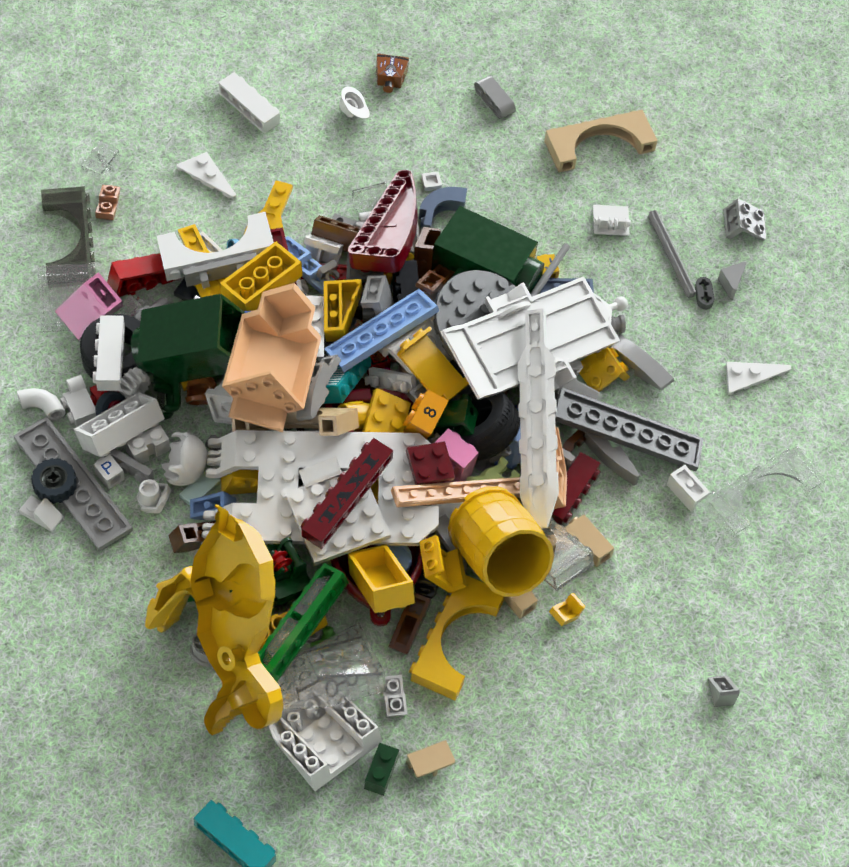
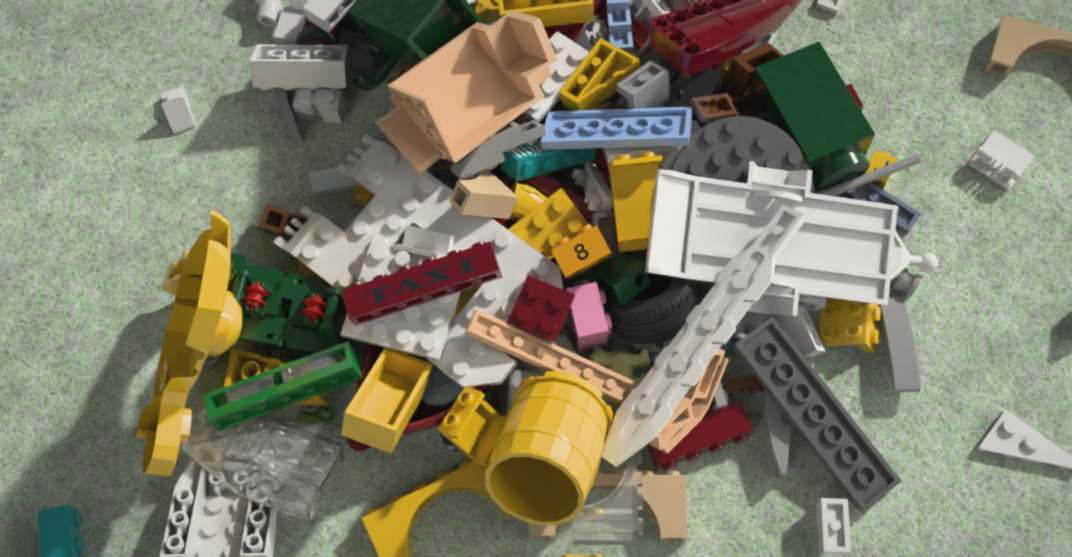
camera: 50 degrees right, 10 degrees up
(63, 485) = (205, 95): black wheel -> none
(89, 503) = (226, 100): light grey plate -> none
(109, 471) = (264, 108): white brick -> none
(134, 382) = (351, 34): white gear -> none
(150, 496) = (283, 157): white piece -> none
(186, 461) = (333, 142): white piece -> none
(207, 502) = (327, 206): medium blue slope -> none
(327, 270) = (629, 30): light grey tile -> none
(394, 696) = (334, 527): white slope -> none
(410, 624) = (411, 462): reddish brown slope -> none
(441, 200) = (820, 26): sand blue arch -> none
(672, 254) = (1043, 242): light grey axle -> none
(708, 292) = (1050, 314): dark grey beam -> none

